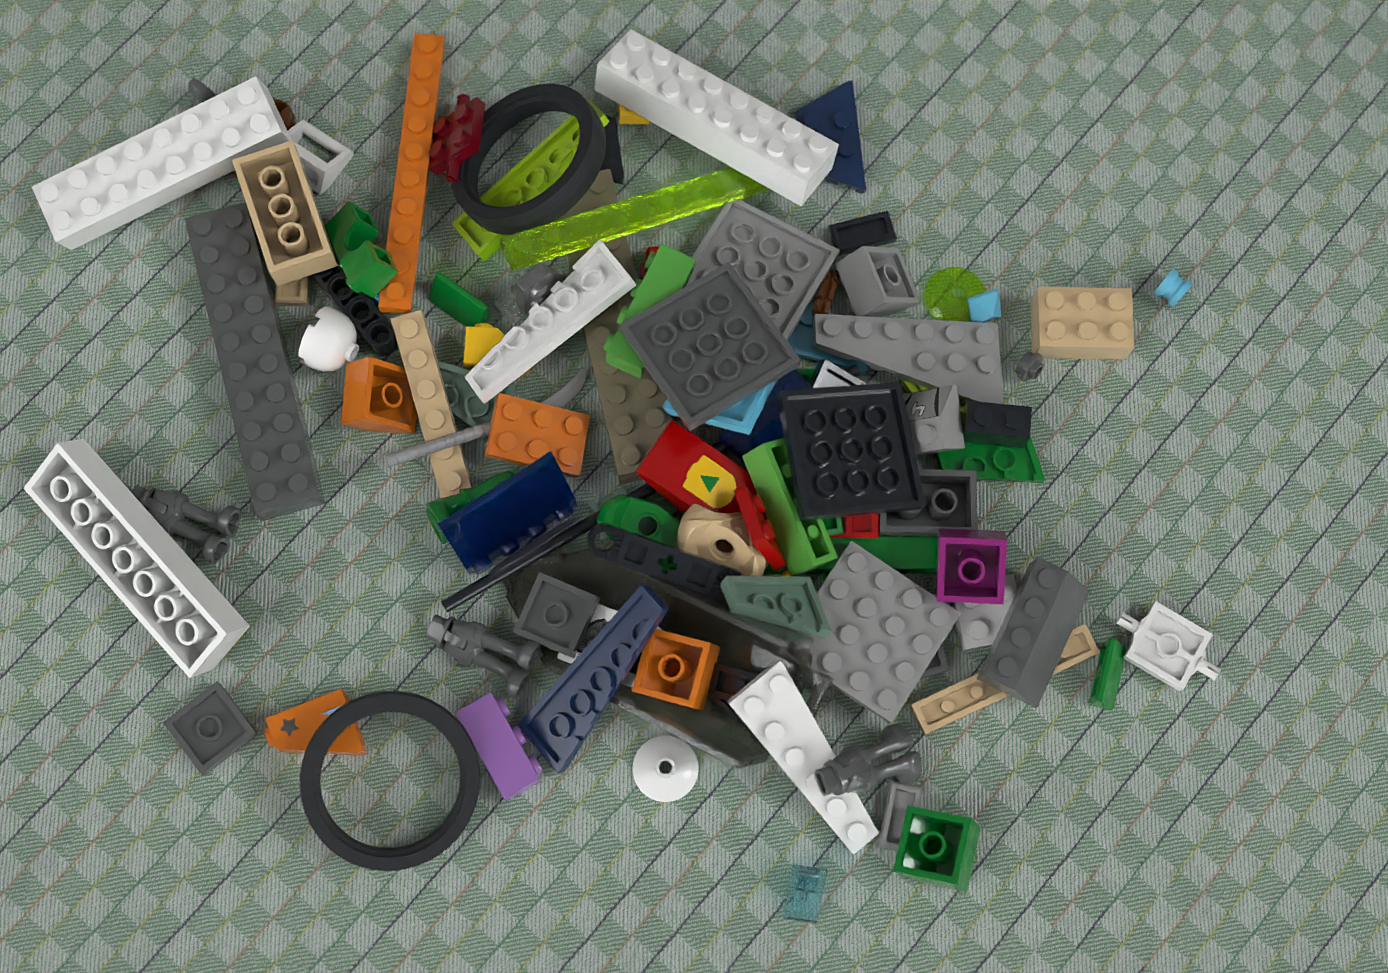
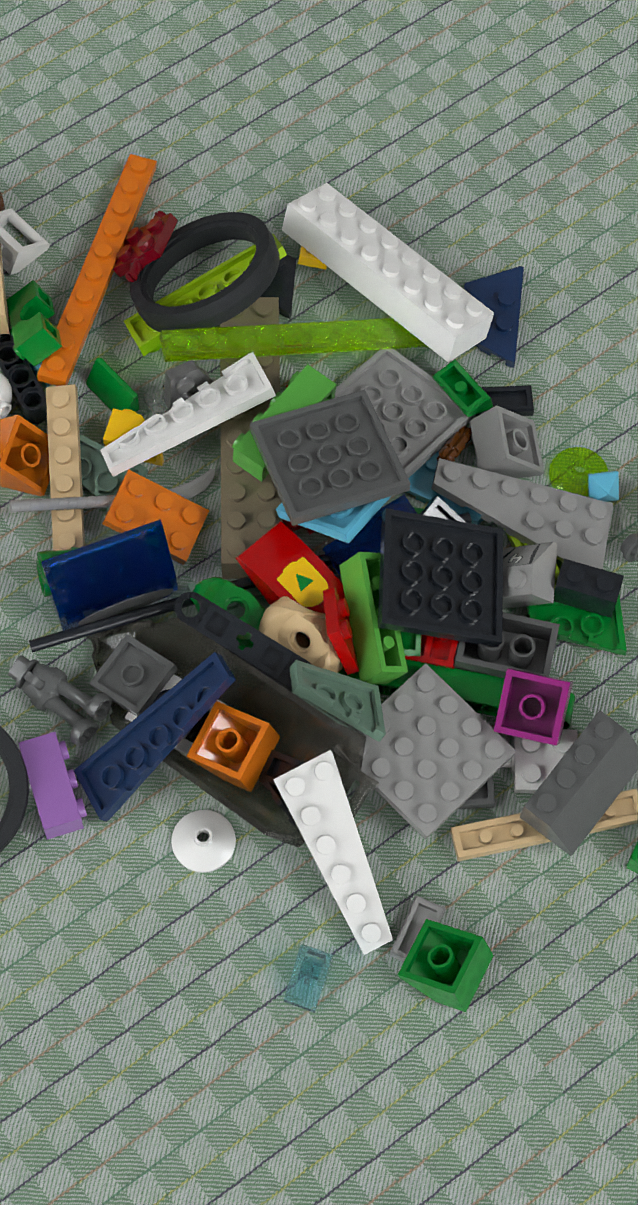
camera: 15 degrees right, 10 degrees down
(821, 231) = (462, 389): none -> green slope
(853, 768) = (380, 870): dark grey piece -> none

